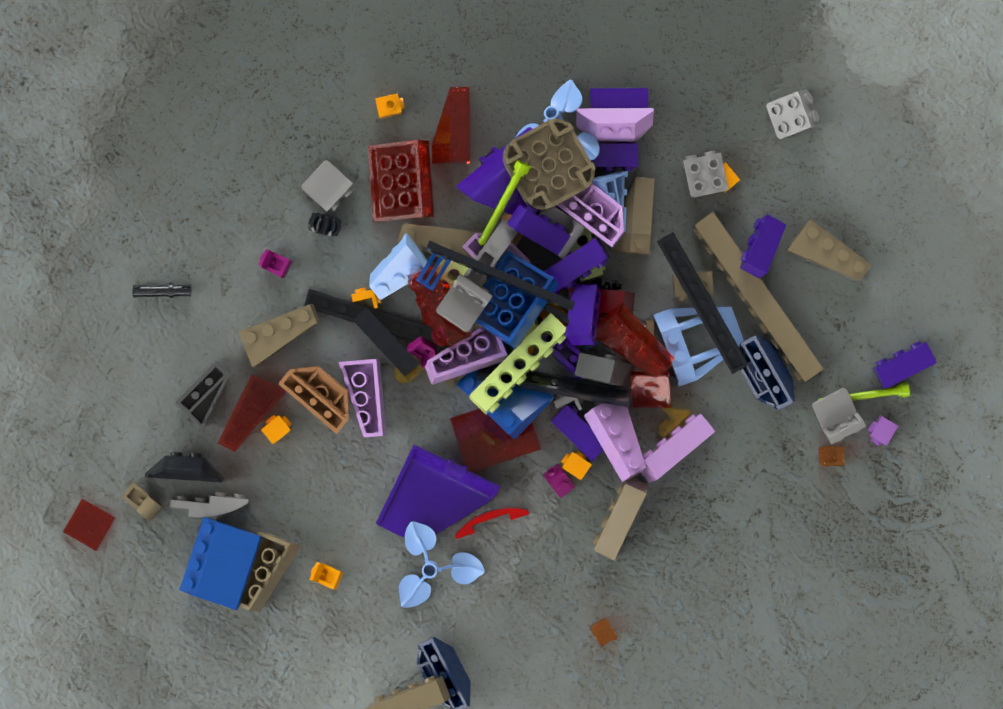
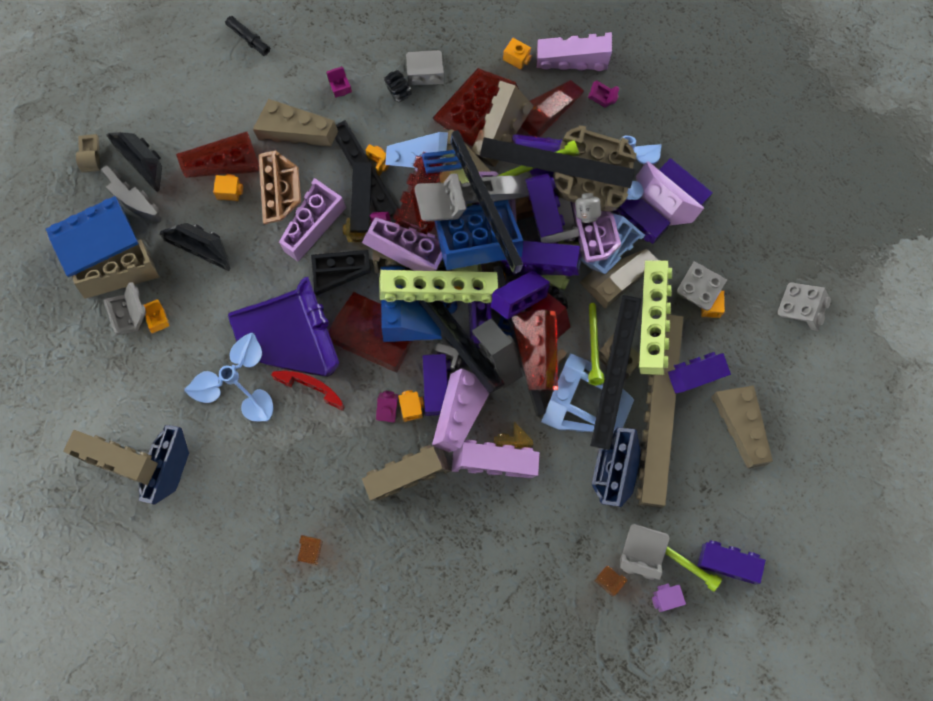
camera: 40 degrees right, 15 degrees down
(89, 524) = (39, 137): clear red tile -> none
(203, 393) = (203, 119): dark grey wedge -> none
(300, 491) = (197, 242): none -> black wedge
(301, 592) = (125, 311): none -> light grey bracket
(424, 413) = (338, 268): none -> black wedge
(433, 65) = (575, 52): none -> lavender wedge
(438, 185) = (505, 118): none -> dark tan wedge
(488, 77) = (603, 95): none -> magenta bracket
(520, 190) = (557, 162): none -> black tile
(575, 203) = (588, 208): none -> light grey head
(649, 391) = (518, 401): clear red tile -> none
(659, 199) = (655, 363): none -> yellowish green brick
(691, 320) = (595, 376): none -> lime piece

